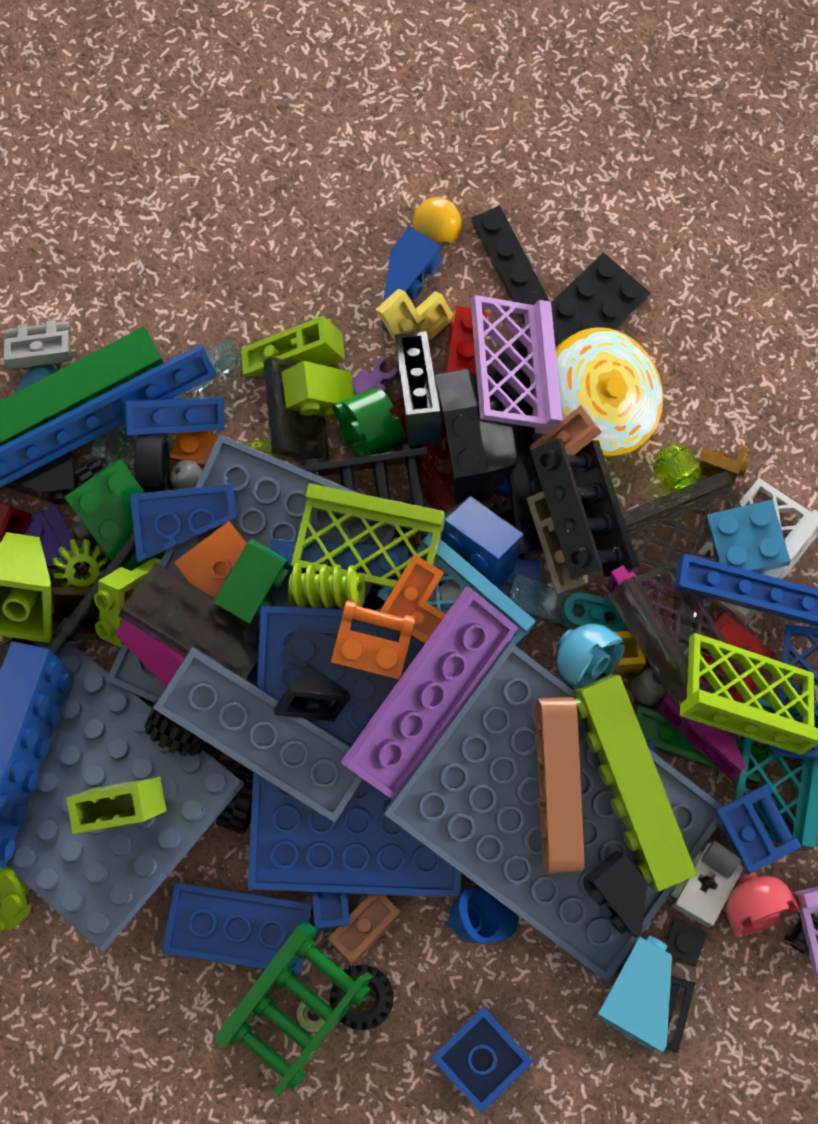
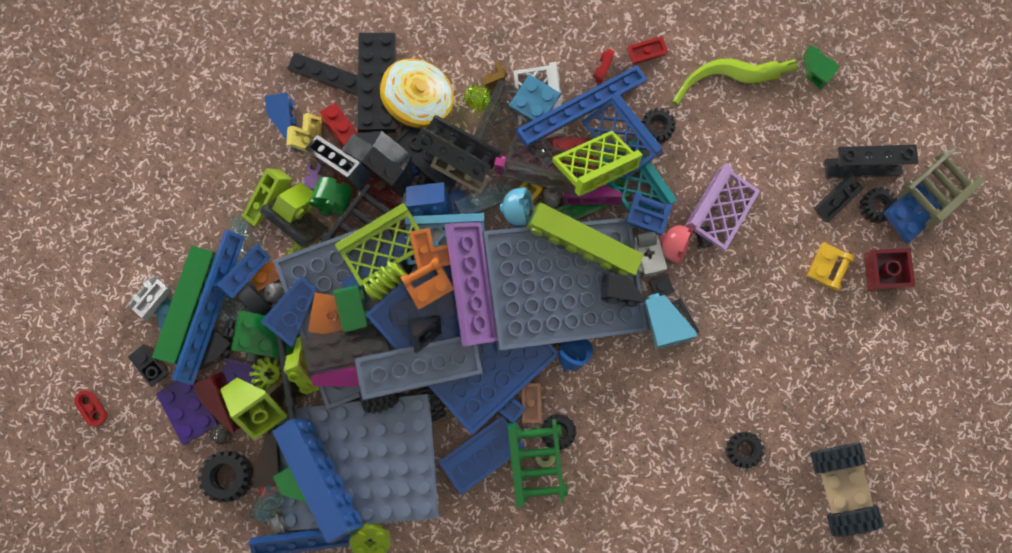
camera: 45 degrees left, 5 degrees up
(116, 805) = (387, 453): lime brick -> none
(438, 220) = (273, 82): yellow hair -> none
(482, 1059) = (629, 408): blue brick -> none
(540, 366) = (381, 105): lavender fence -> none
(559, 785) = (557, 270): nougat beam -> none
(575, 430) = (422, 118): nougat plate -> none
(592, 611) = (500, 188): teal plate -> none

